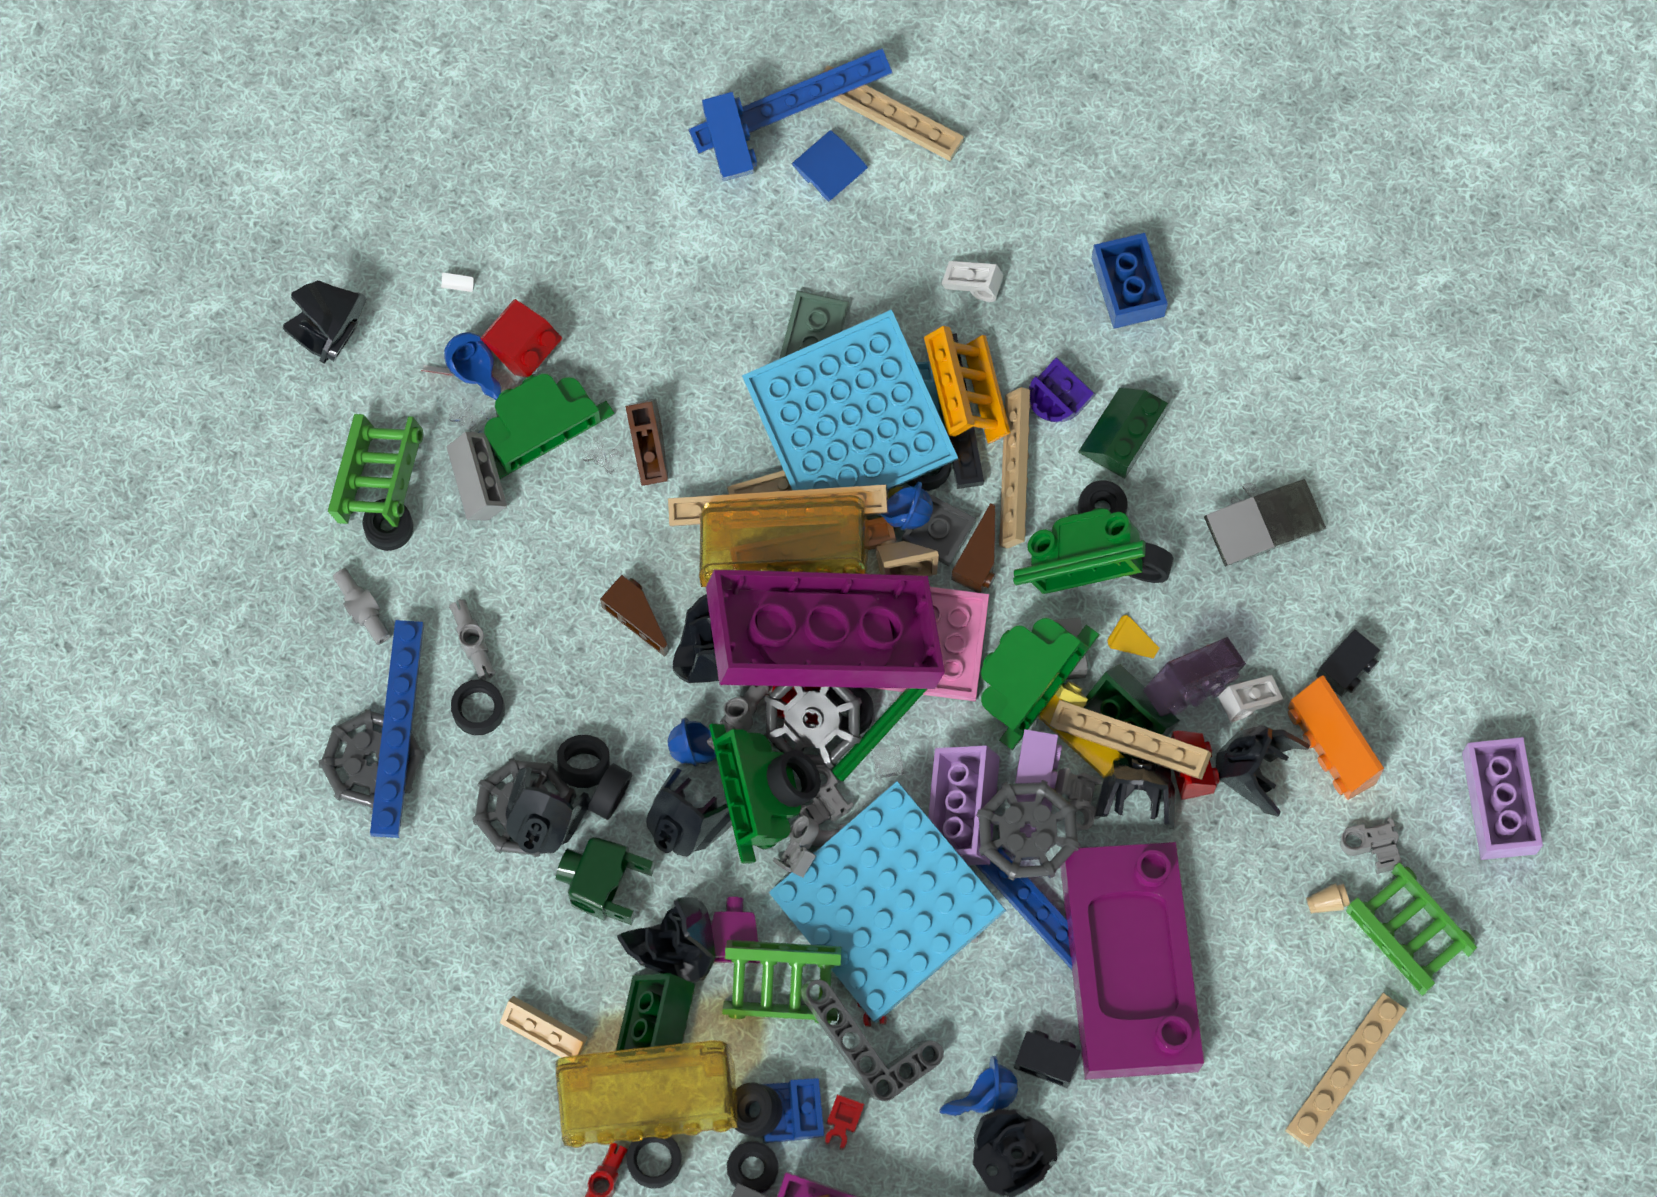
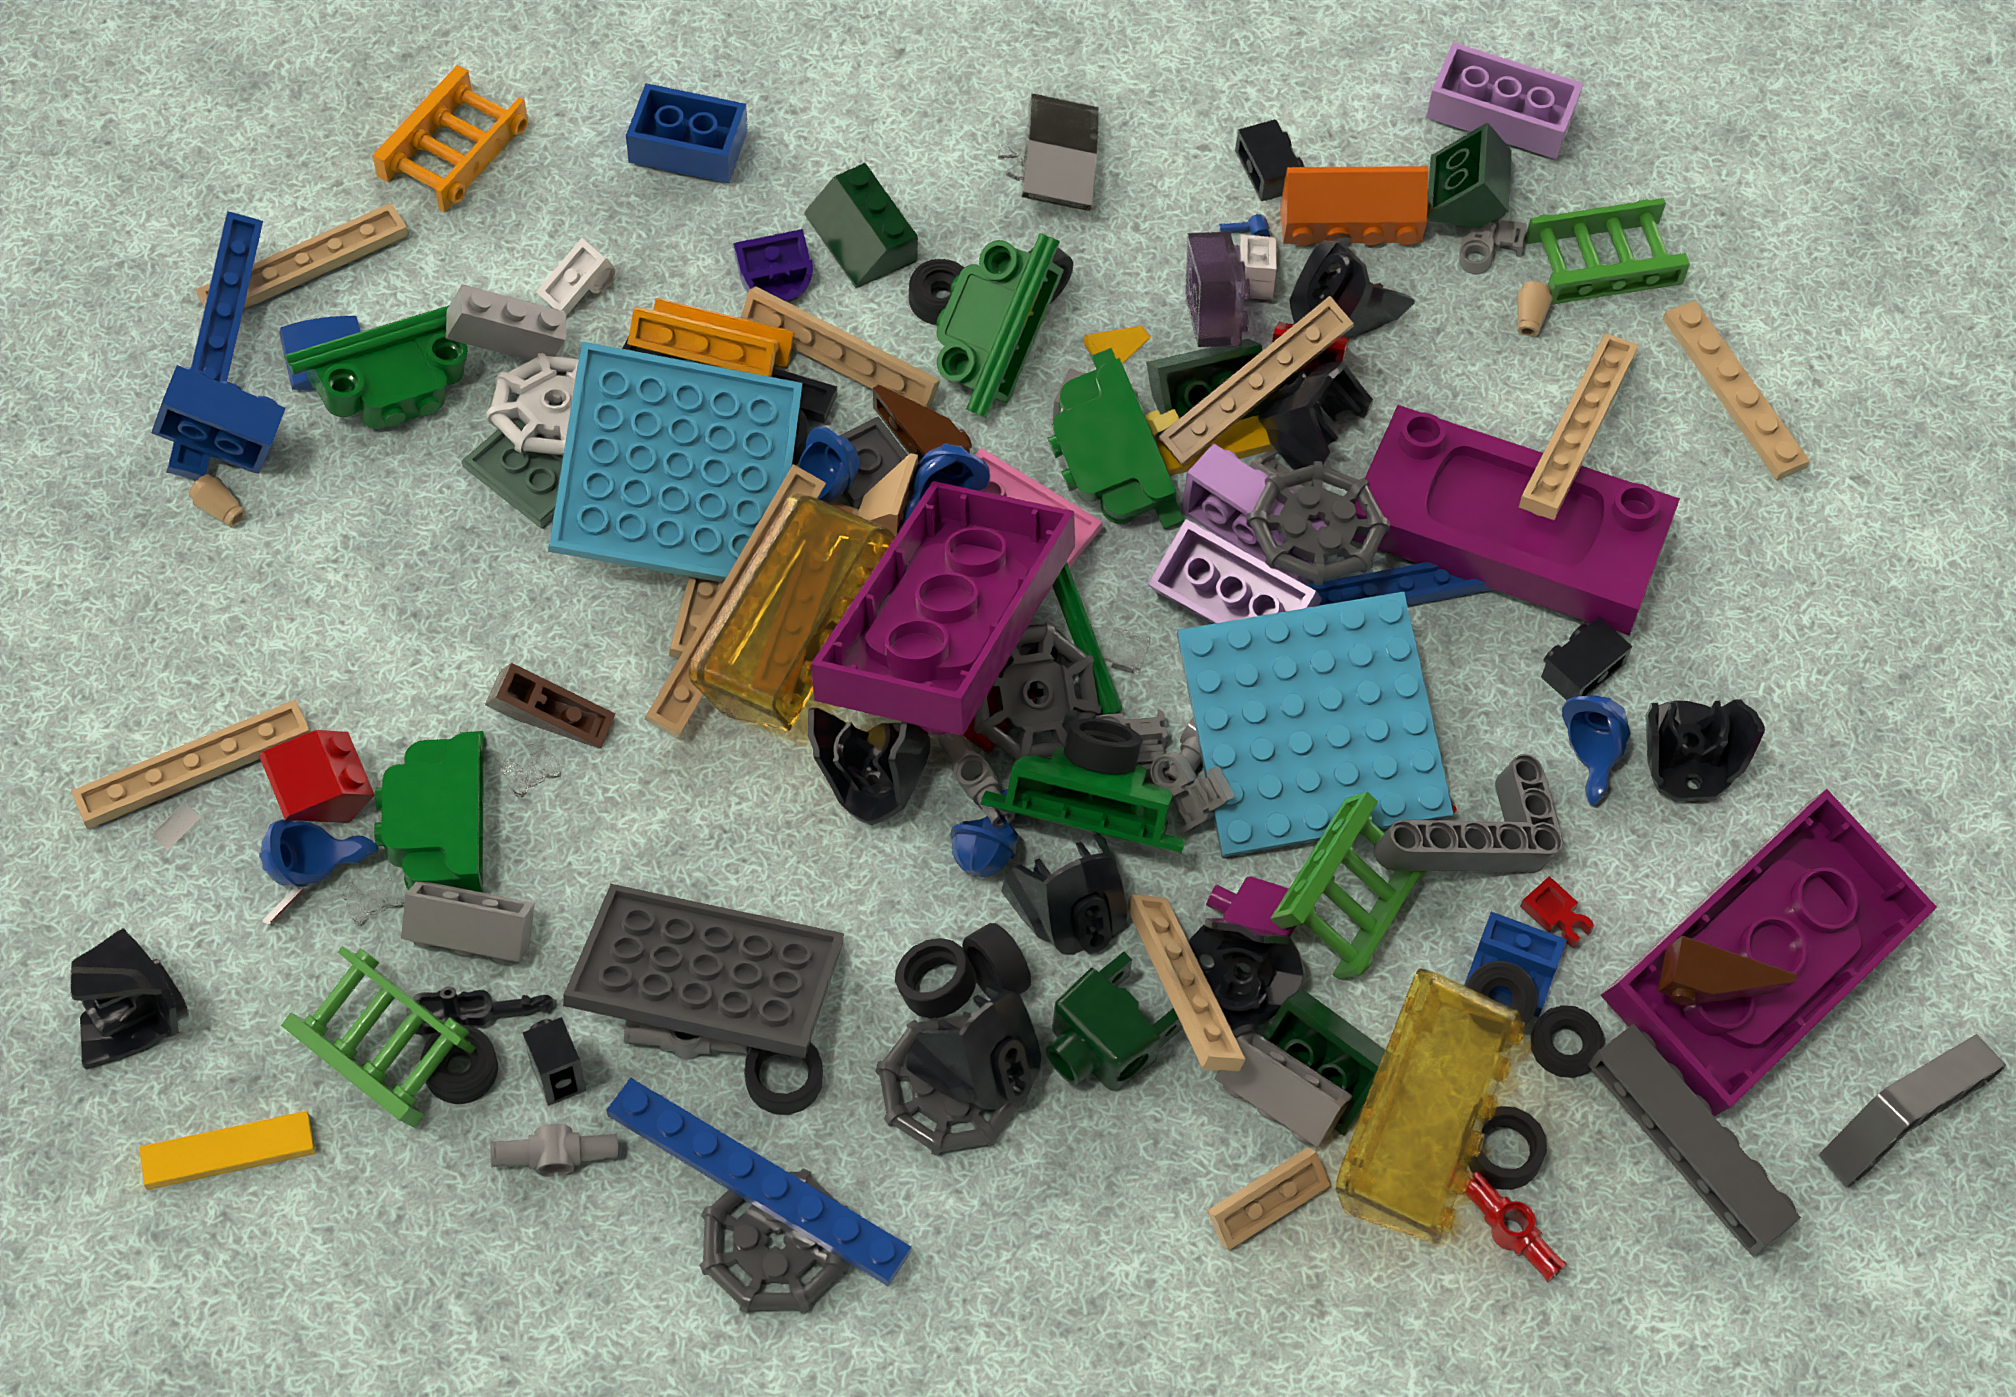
camera: 65 degrees left, 10 degrees down
(272, 432) = (226, 1150): none -> yellow tile
(410, 573) = (554, 1060): none -> black brick
(428, 511) = (476, 1007): none -> black piece
(500, 266) = (188, 764): none -> tan plate
(514, 626) = (705, 970): none -> dark grey plate
(619, 1003) = (1285, 1089): none -> light grey brick
(630, 607) = (769, 828): reddish brown slope -> none
(649, 907) = (1185, 984): none -> tan plate
(685, 170) = (215, 499): none -> tan cone
(832, 210) = (385, 370): none -> green brick
(867, 305) = (534, 405): none -> white plate
(901, 258) = (504, 324): none -> light grey brick
(945, 580) = (949, 466): none -> blue piece
(1045, 118) = (437, 112): none -> light orange fence
(1228, 970) = (1578, 427): none -> tan plate
(1288, 682) = (1256, 225): none -> blue hand
(1410, 807) = (1470, 180): none -> dark green slope

